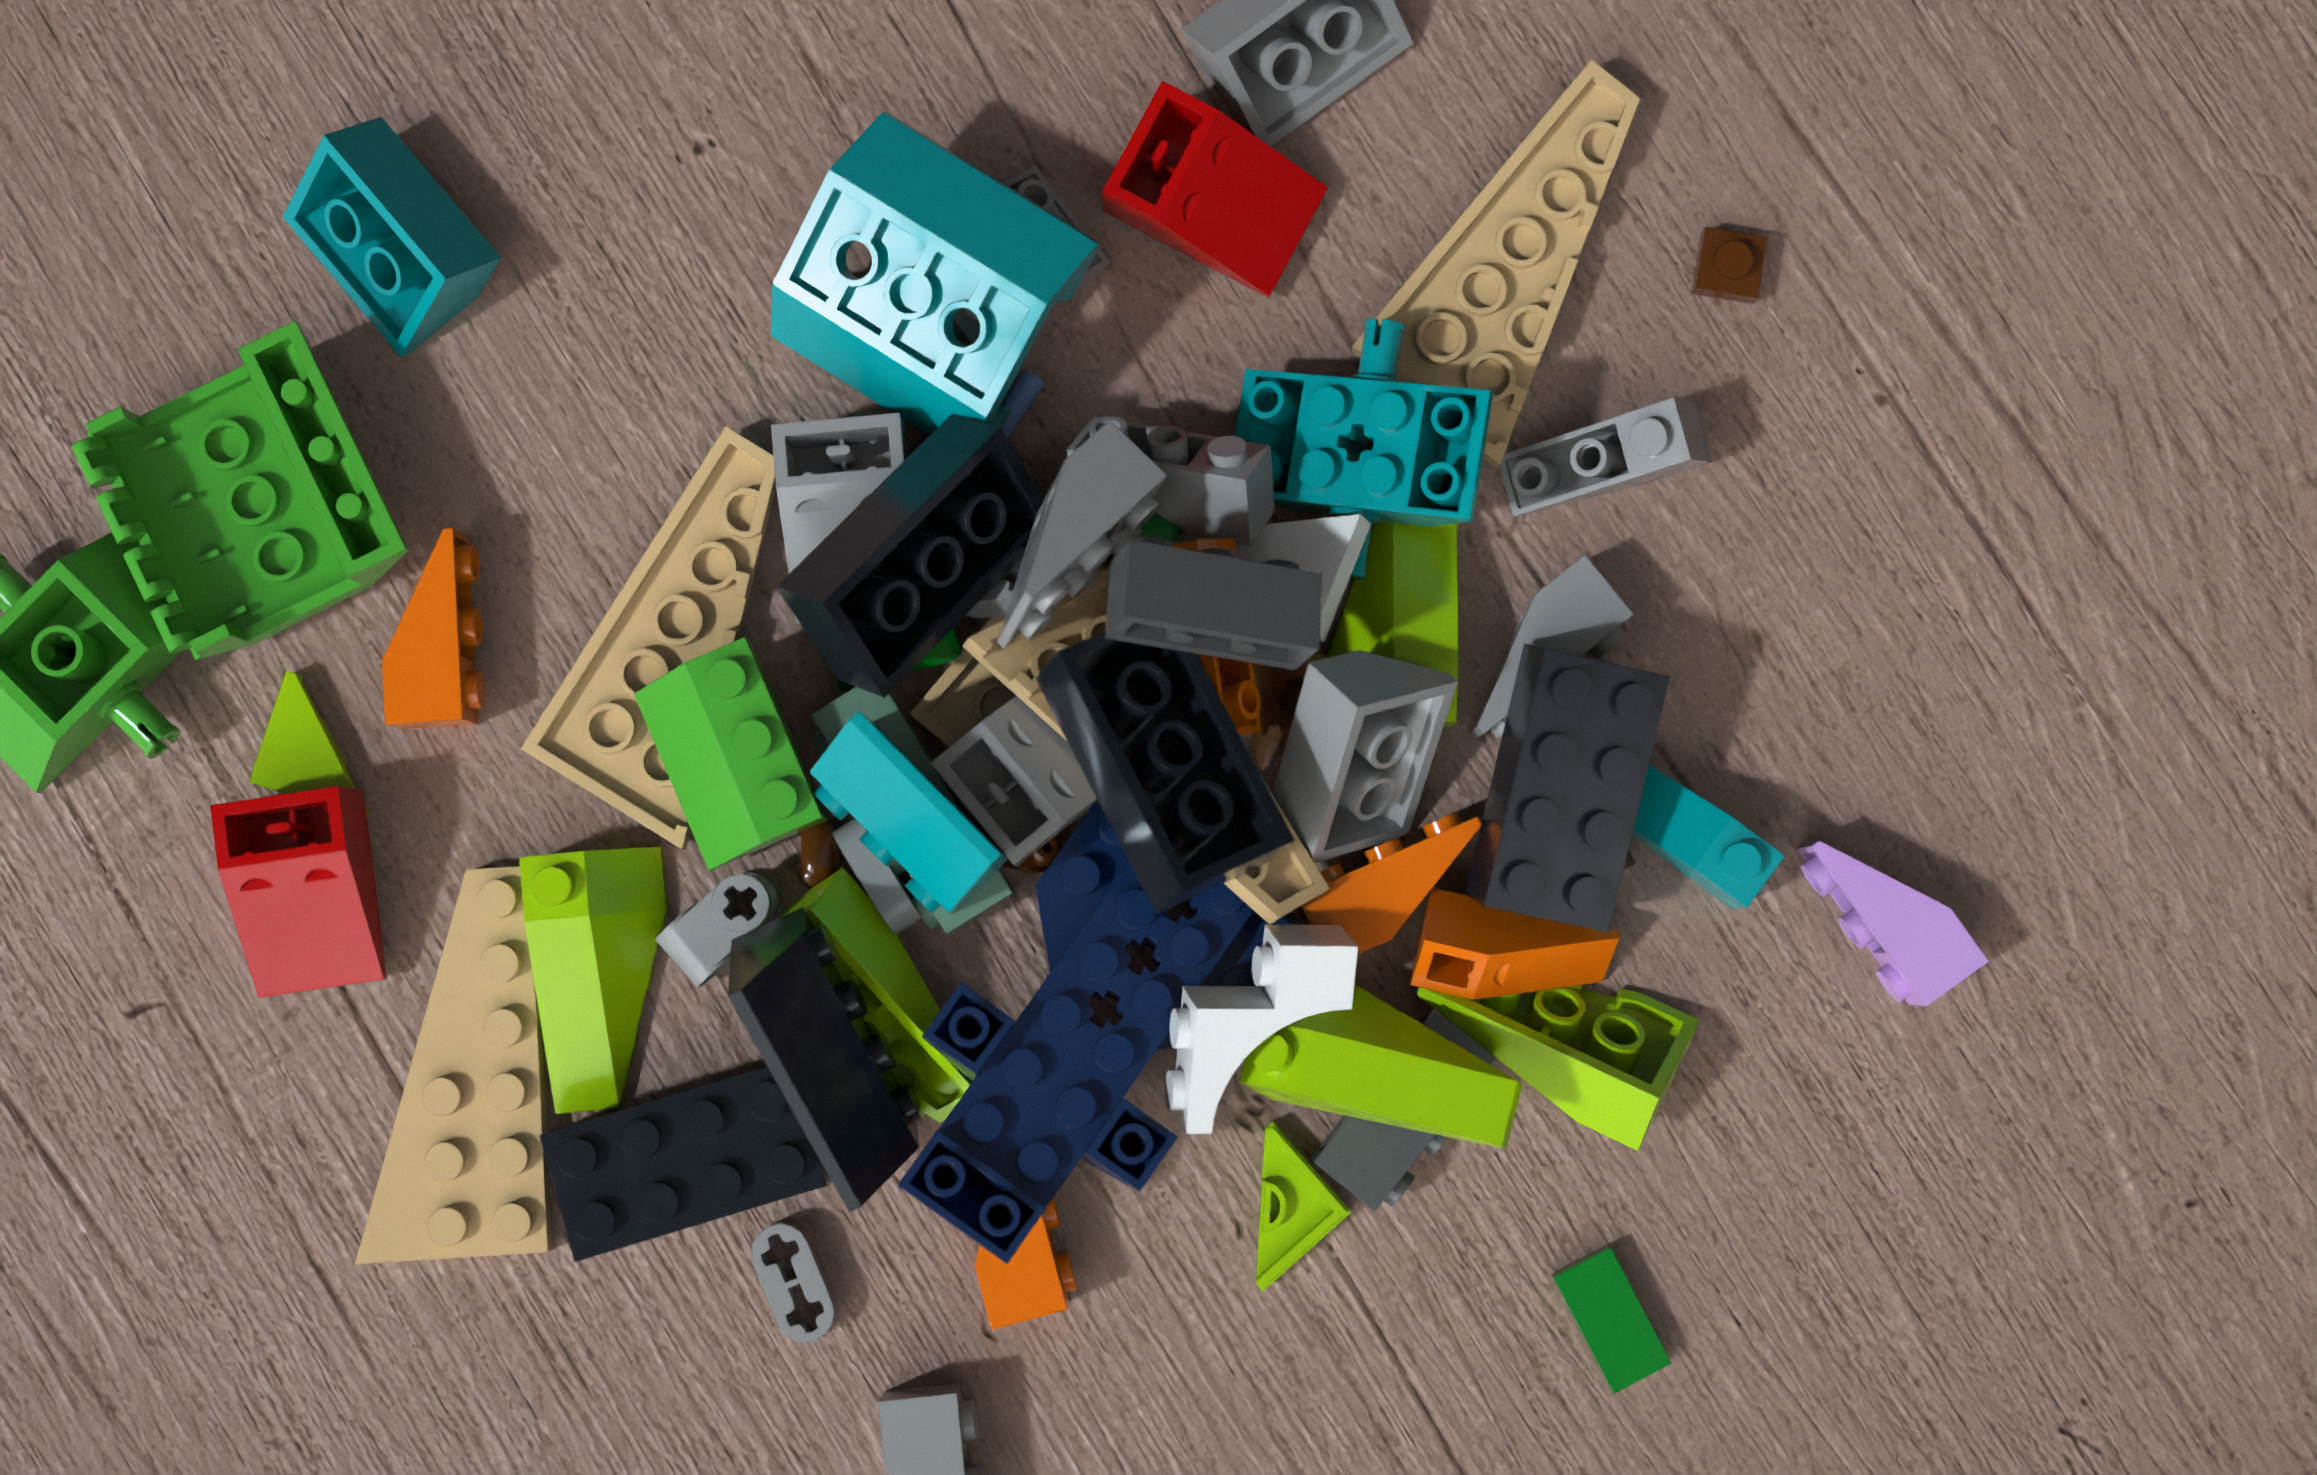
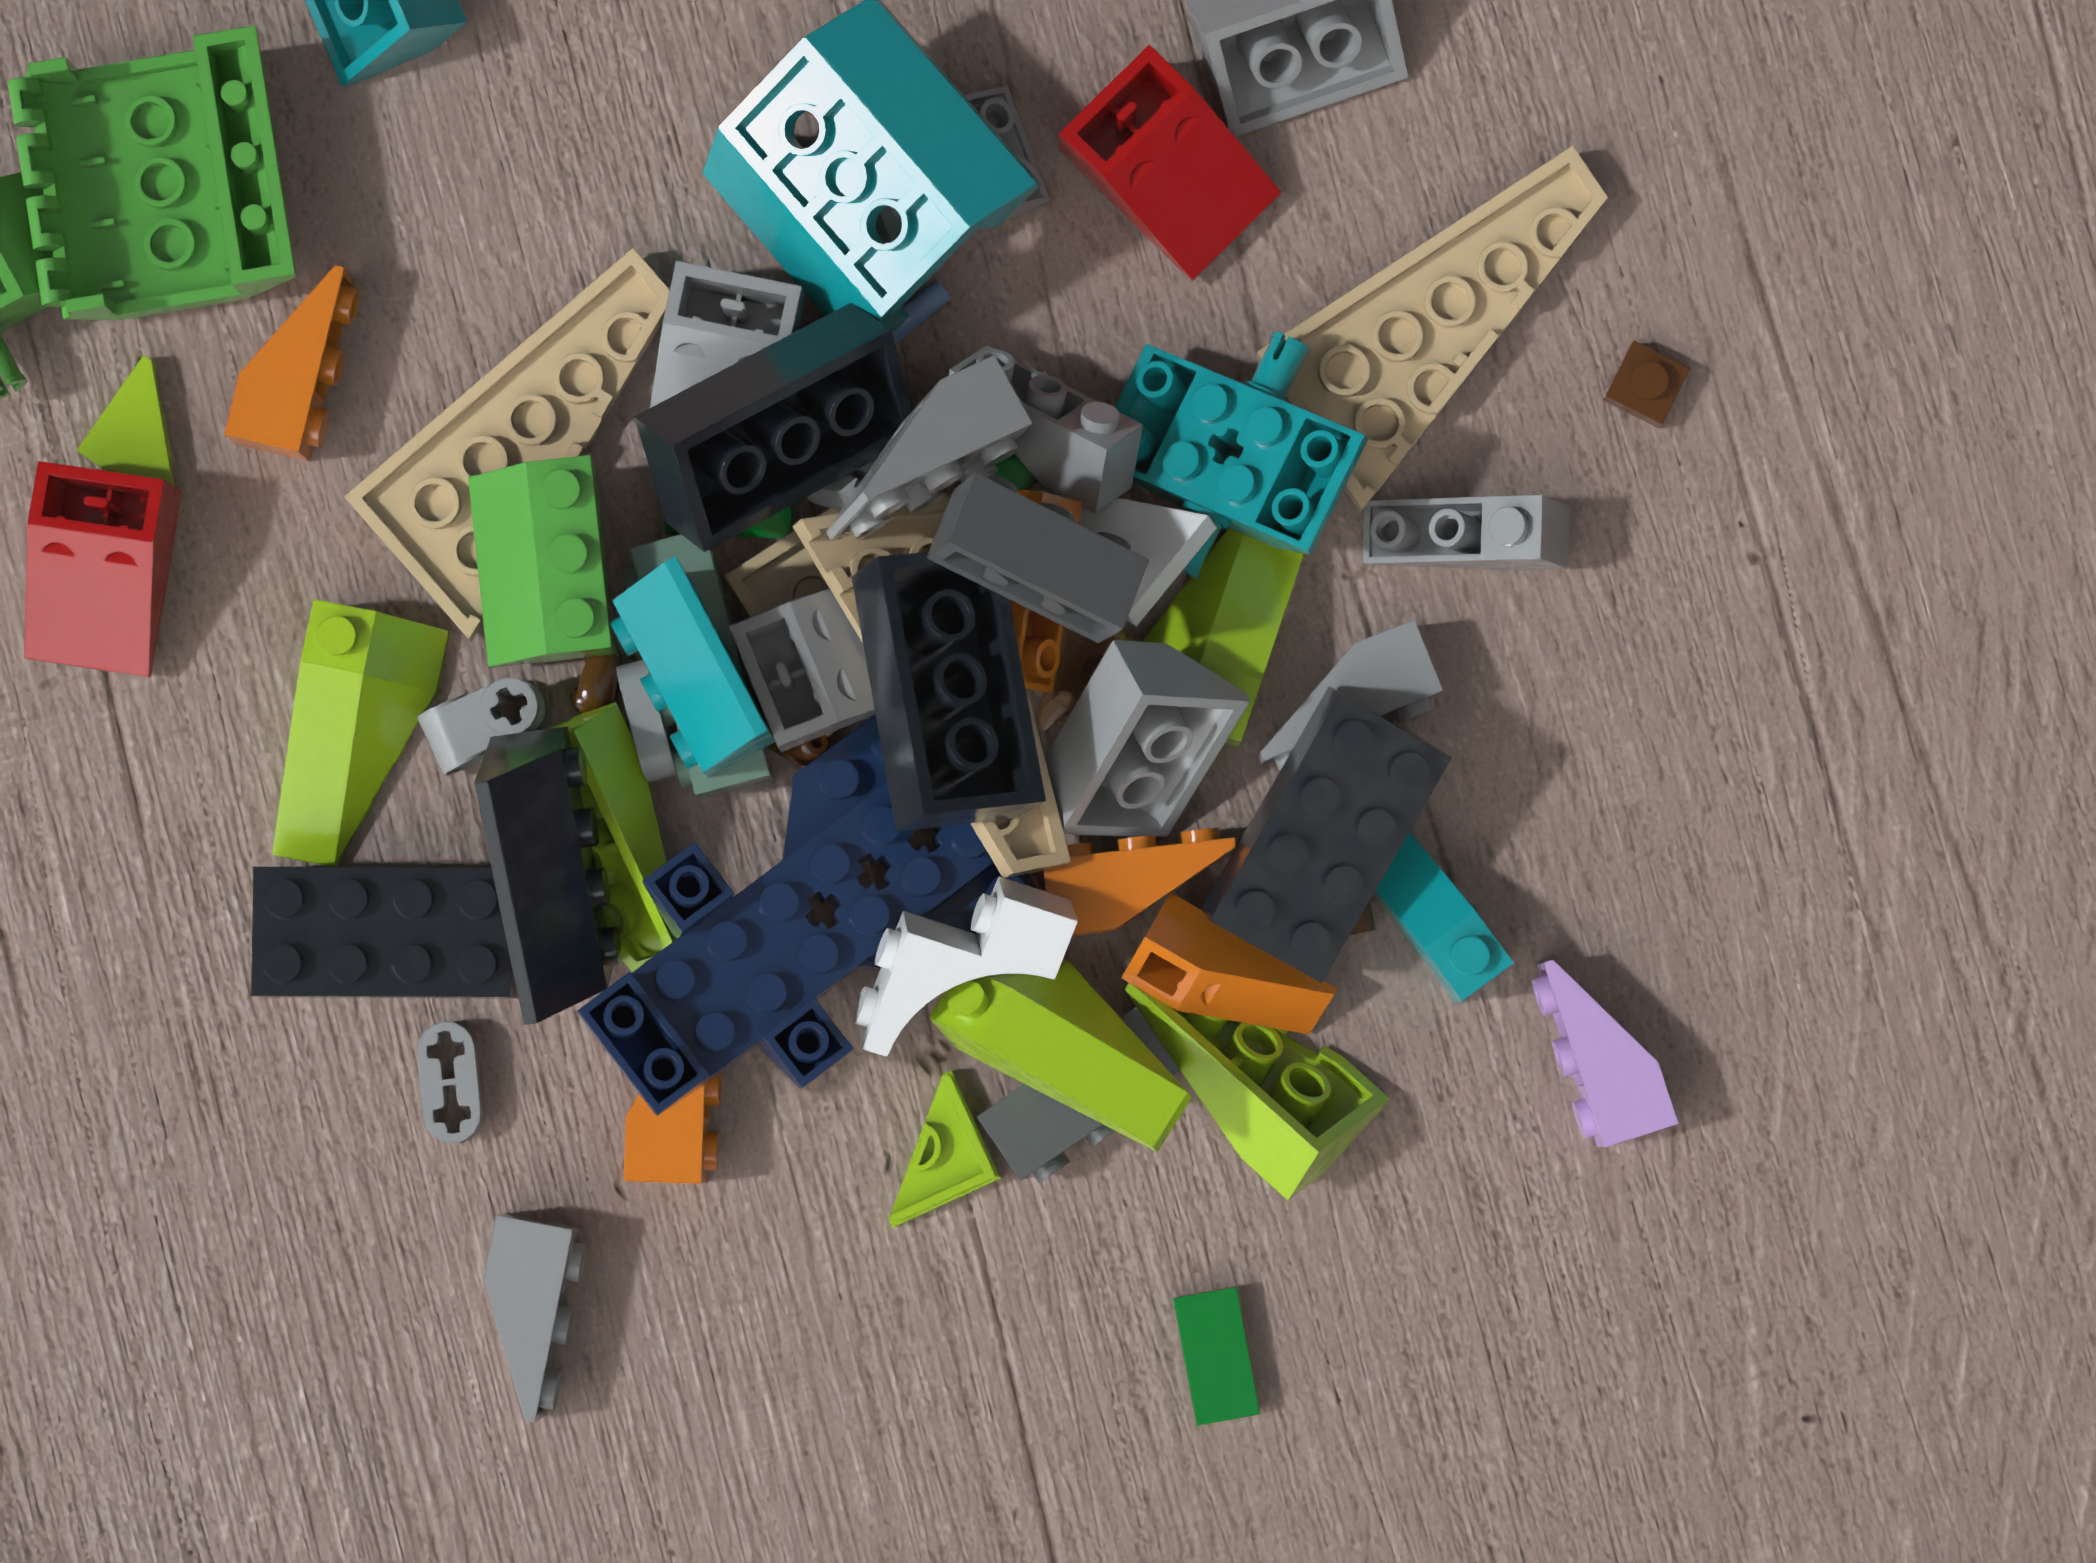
camera: 15 degrees right, 0 degrees up
(466, 1141) = (182, 852): tan wing -> none

